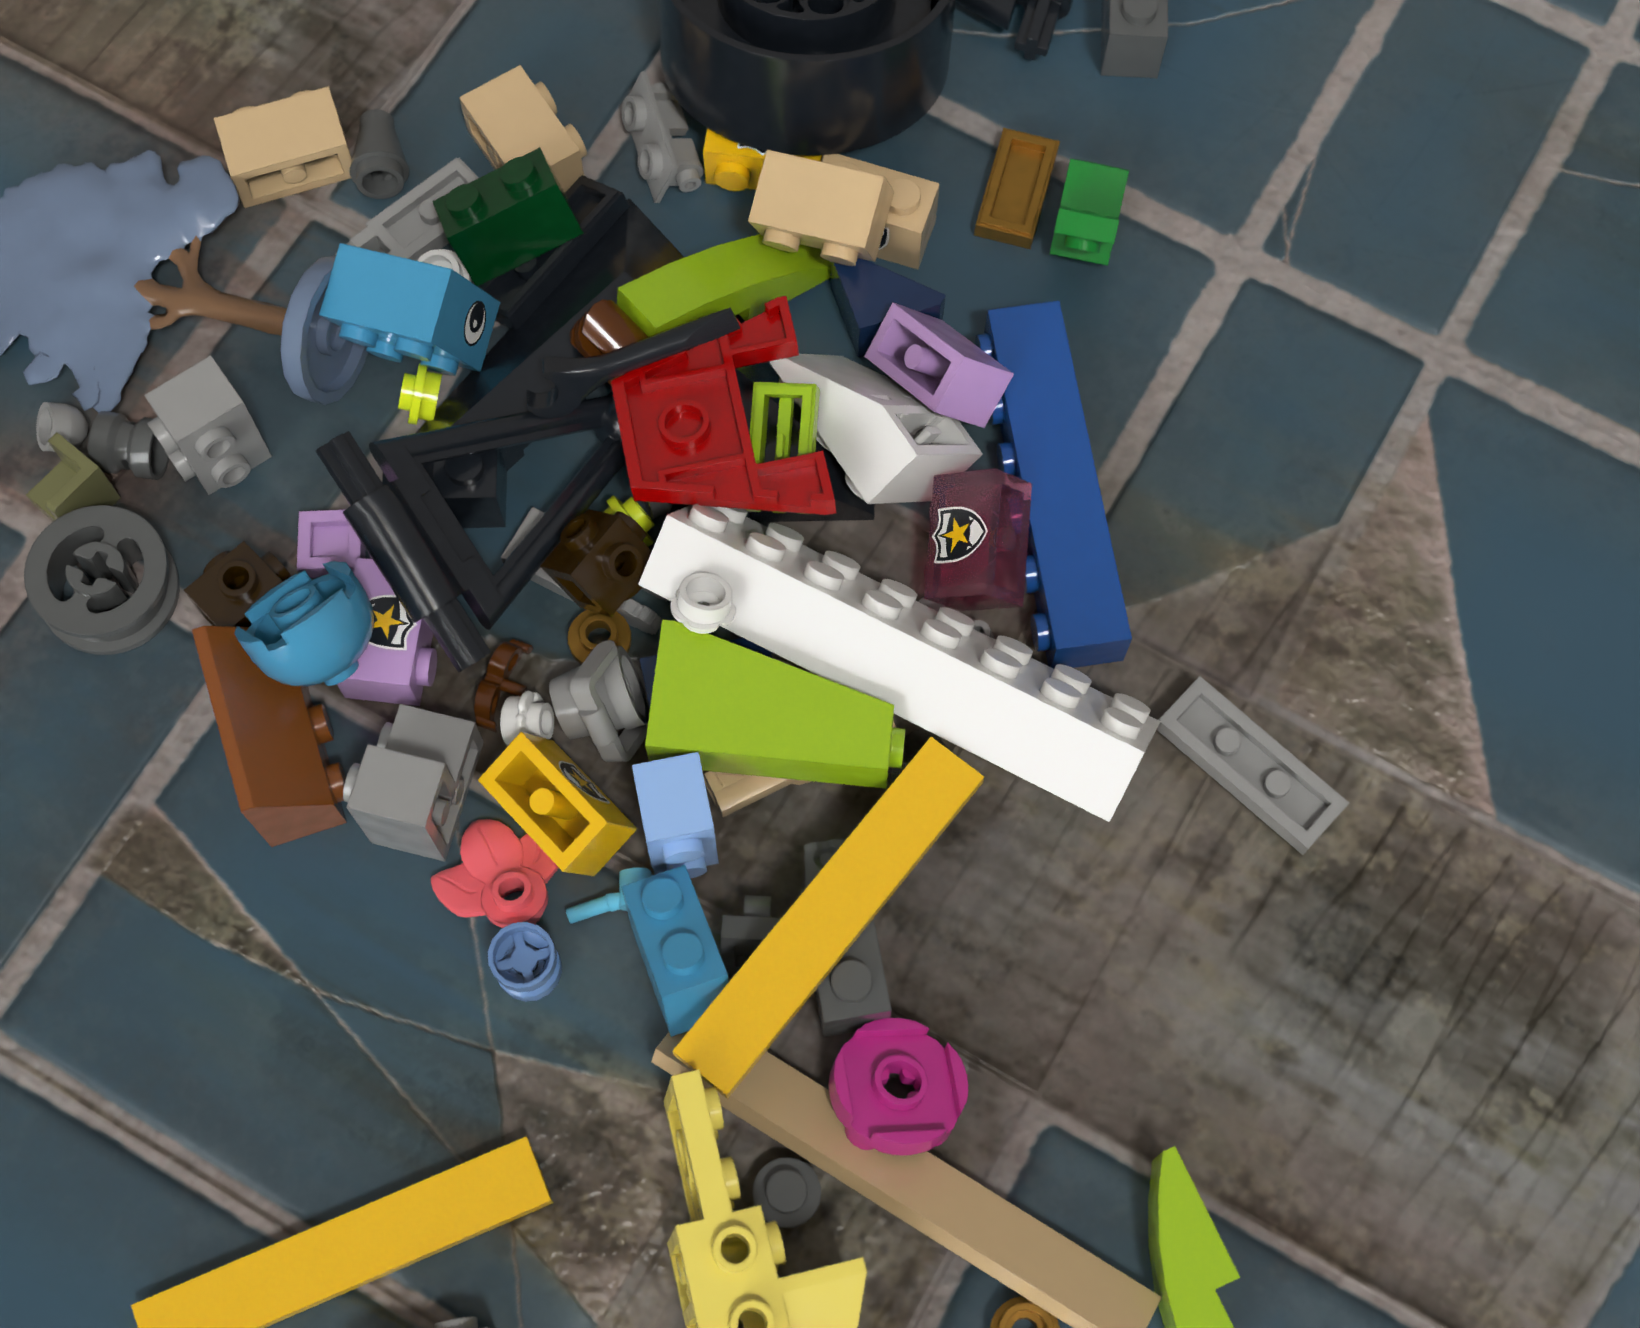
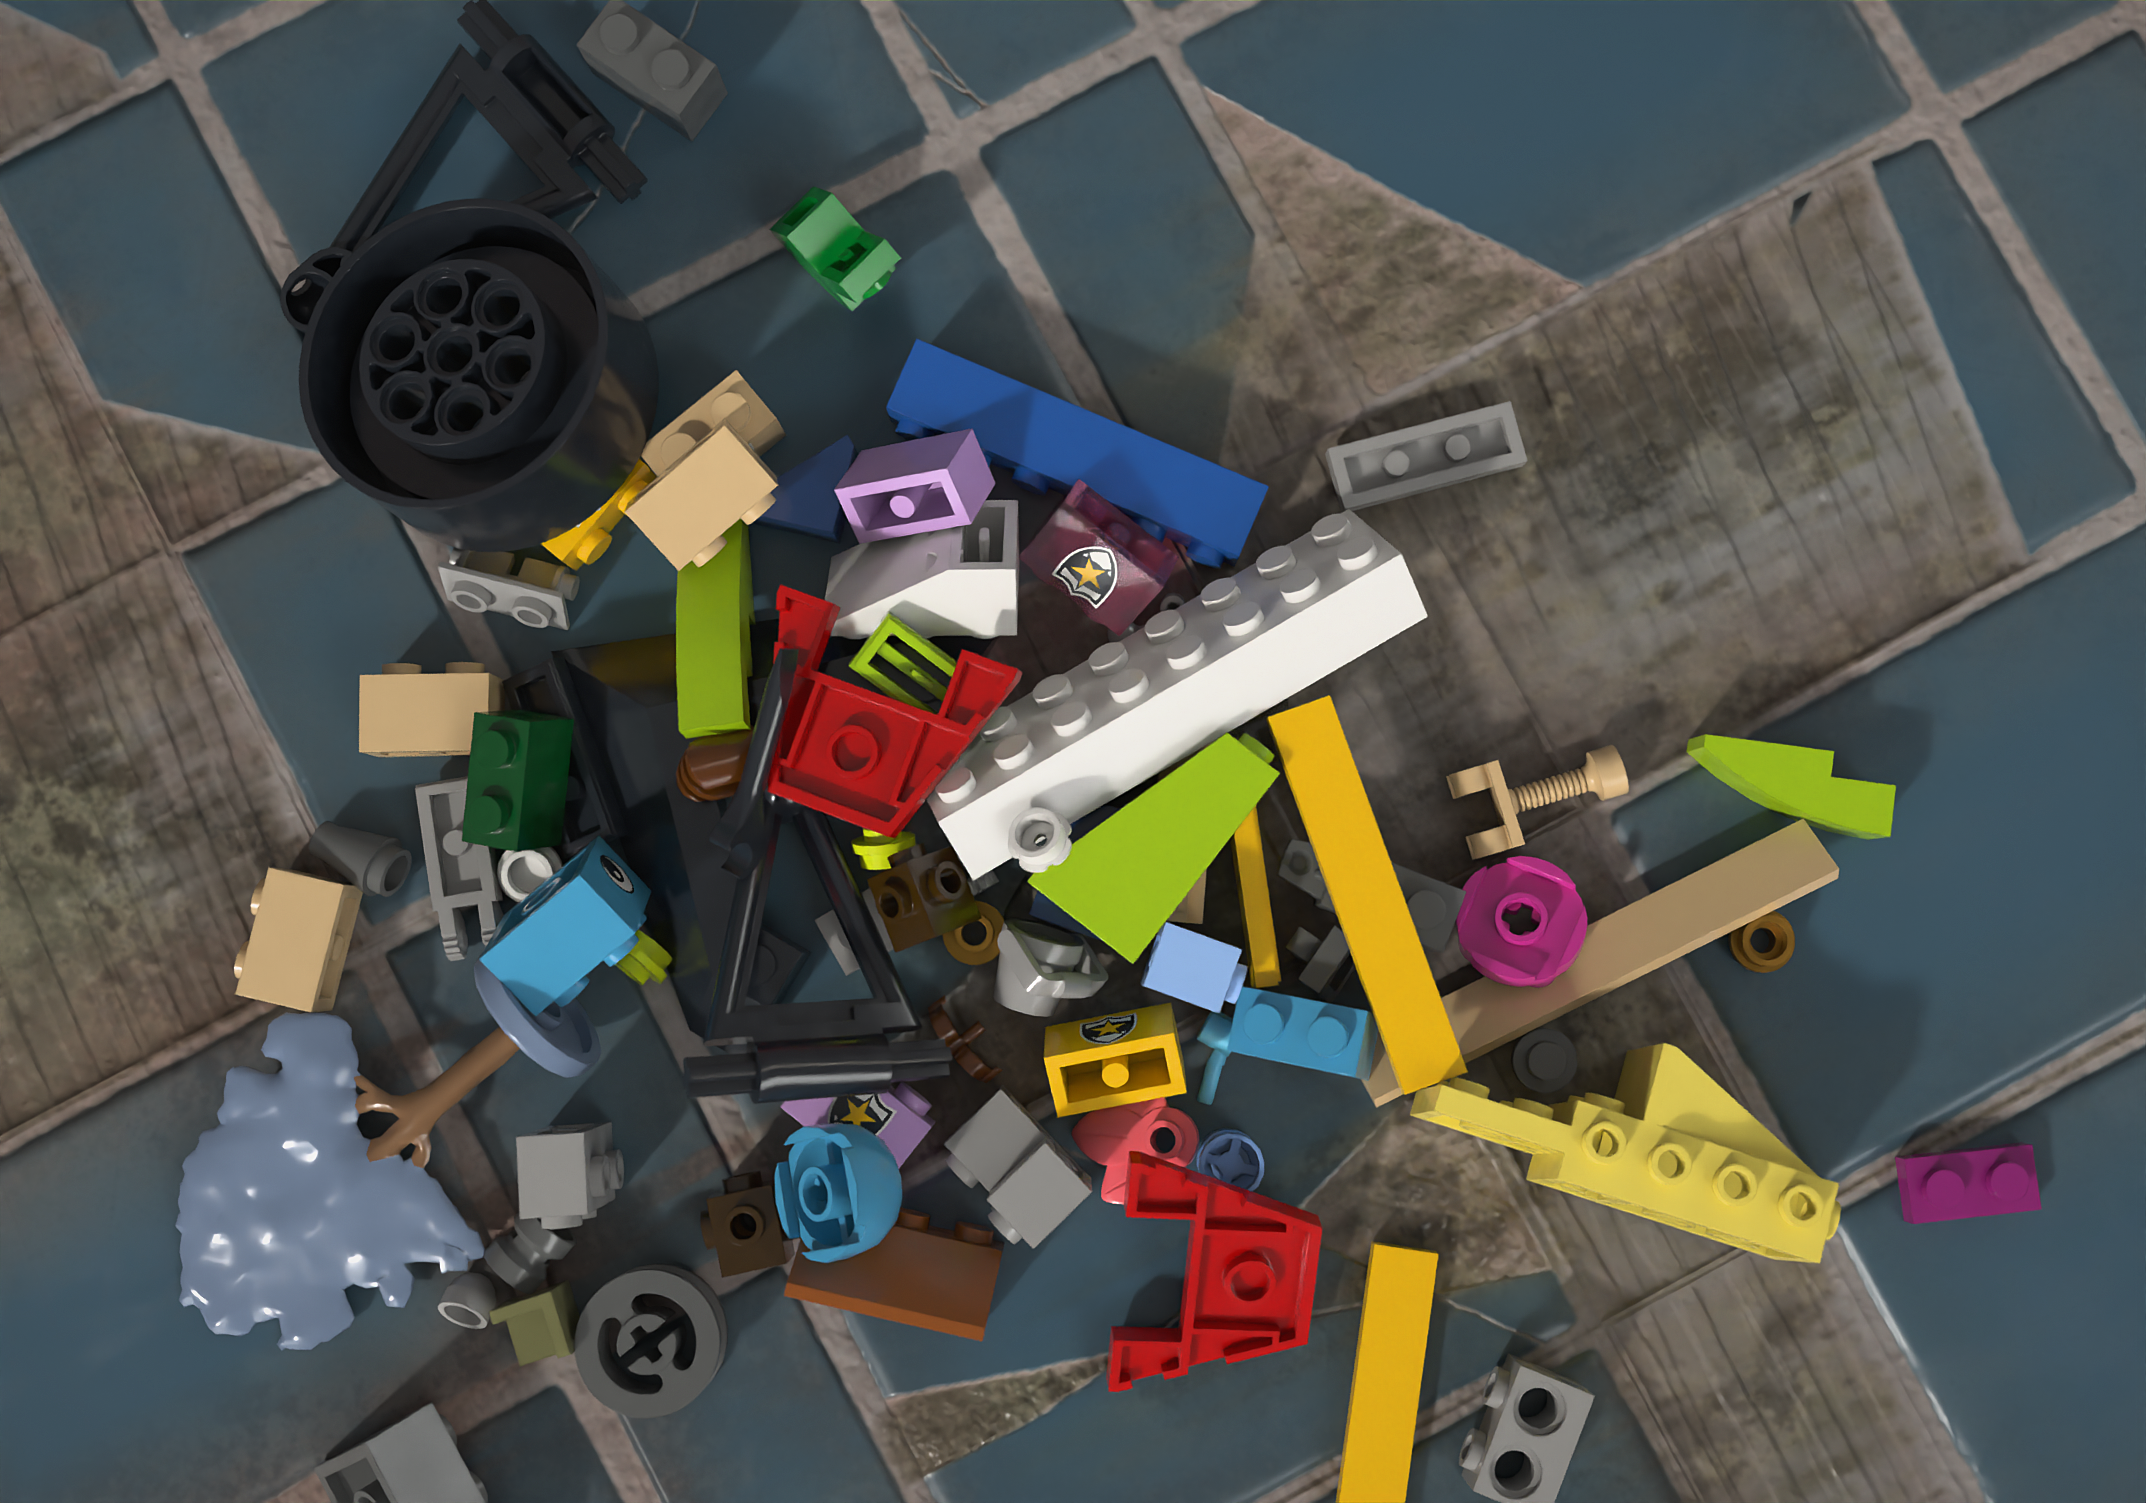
camera: 55 degrees left, 15 degrees up
(325, 538) = (739, 1123): lavender plate -> none
(432, 1027) = (1243, 1278): none -> red wing
(527, 715) = (1016, 1040): white plate -> none
(773, 844) = (1255, 903): none -> yellow tile
(1016, 188) = (763, 295): pearl gold tile -> none
(1077, 1083) = (1601, 774): none -> tan bar

